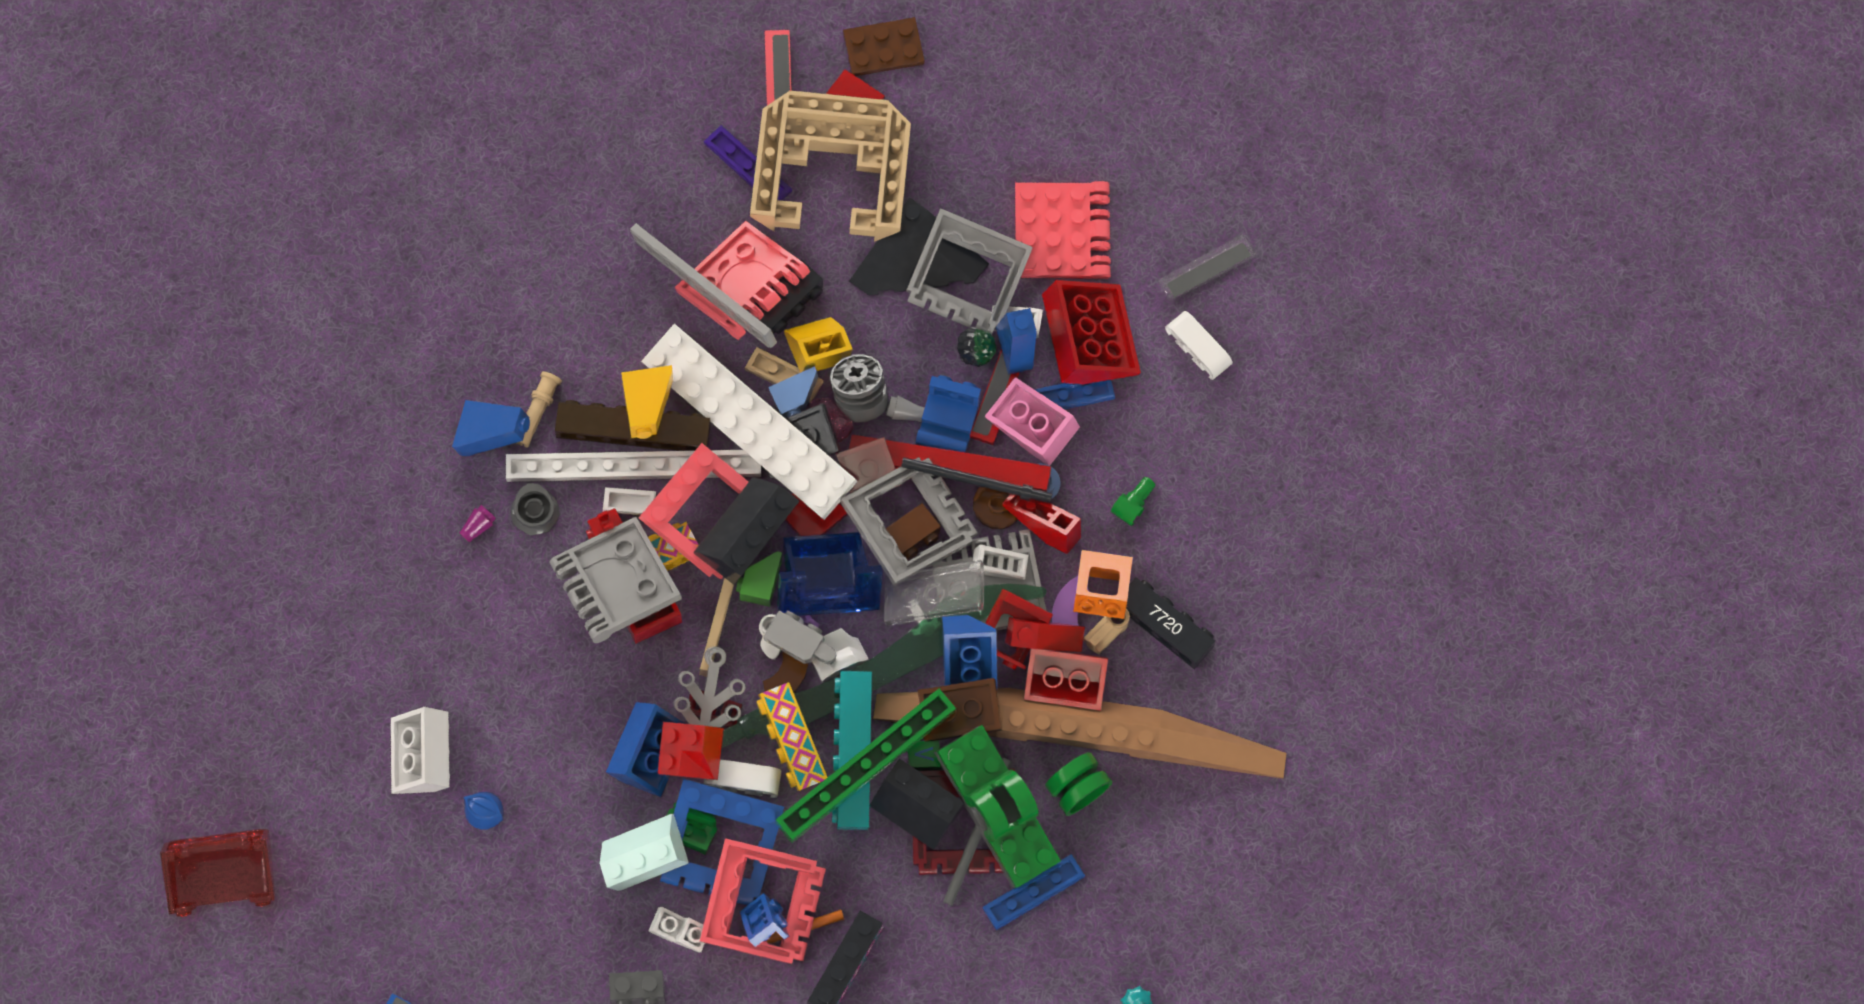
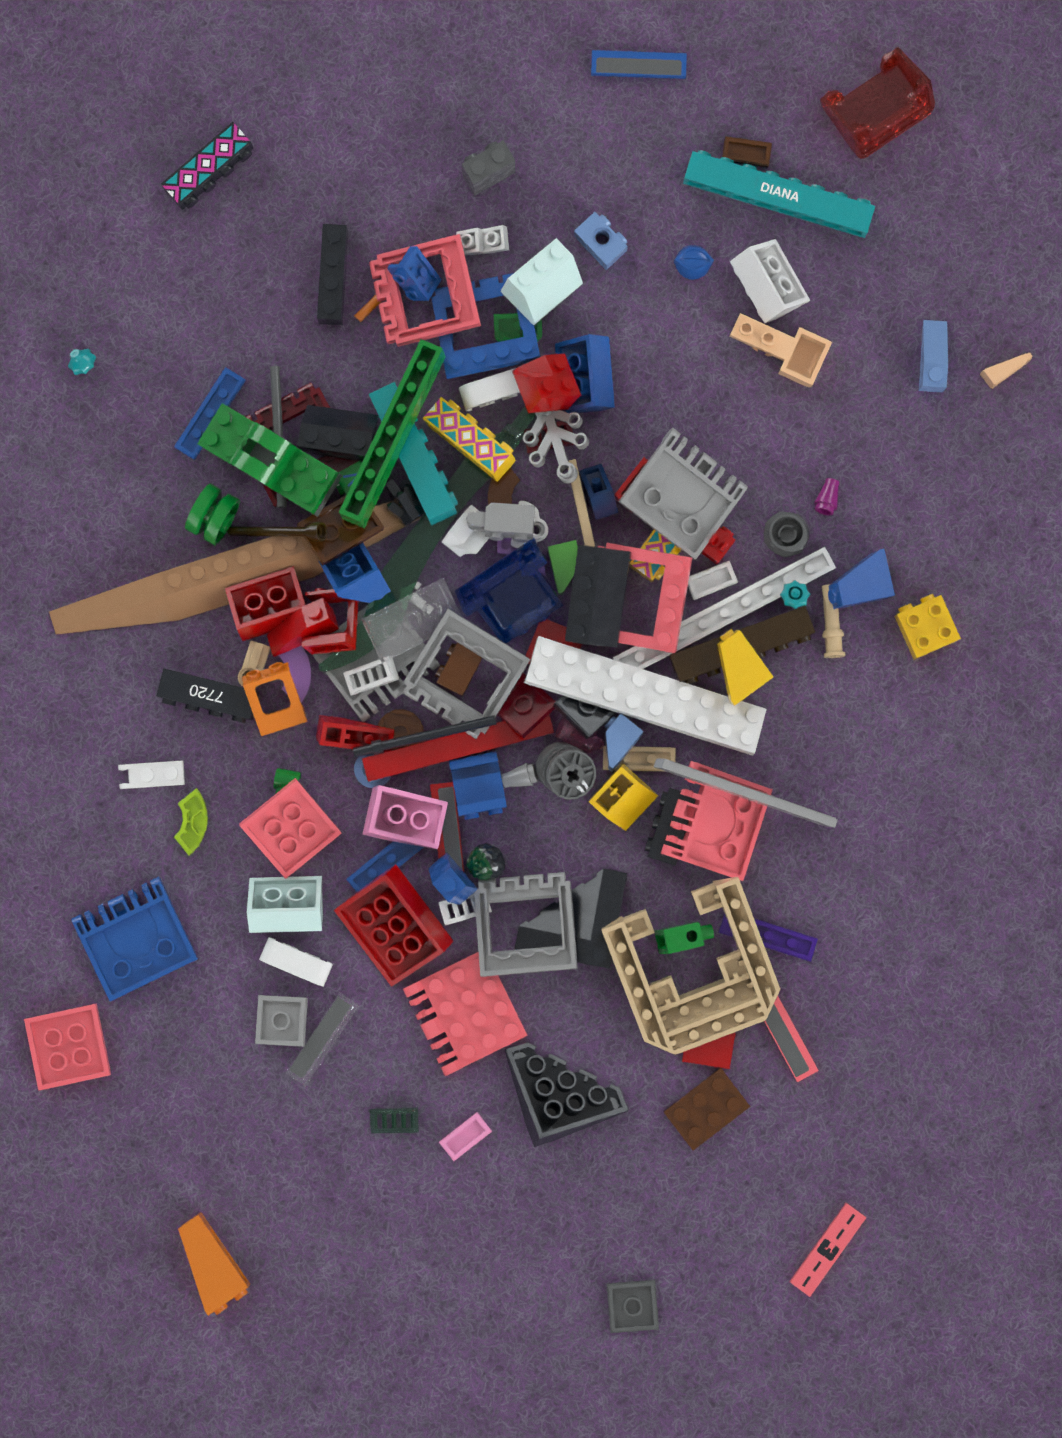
camera: 155 degrees right, 15 degrees up
(245, 558) = (996, 374): none -> light nougat slope
(303, 604) = (934, 356): none -> medium blue slope
(365, 830) = (779, 194): none -> teal brick
(372, 891) = (747, 151): none -> reddish brown tile
(431, 665) = (801, 354): none -> light nougat plate
(450, 361) = (926, 626): none -> yellow brick
(558, 444) = (795, 594): none -> teal piece
(559, 855) = (606, 253): none -> medium blue brick
(692, 633) = (599, 491): none -> dark blue slope
(829, 196) = (674, 938): none -> green torso
(884, 701) = (405, 503): none -> black rock
(987, 706) = (315, 531): none -> dark brown piece
(1015, 115) = (556, 1099): none -> black slope
(1116, 125) = (465, 1136): none -> bright pink tile
(1145, 461) = (290, 828): none -> coral plate
(1163, 172) = (393, 1111): none -> slope
(1183, 400) = (285, 904): none -> light aqua slope
(1235, 516) = (194, 821): none -> lime tile
(1237, 300) = (281, 1020): none -> light grey plate
(1253, 577) = (153, 774): none -> white hinge
(1341, 431) = (136, 943): none -> blue hinge
(1403, 117) = (212, 1266): none -> orange slope
(1450, 371) = (67, 1047): none -> coral plate

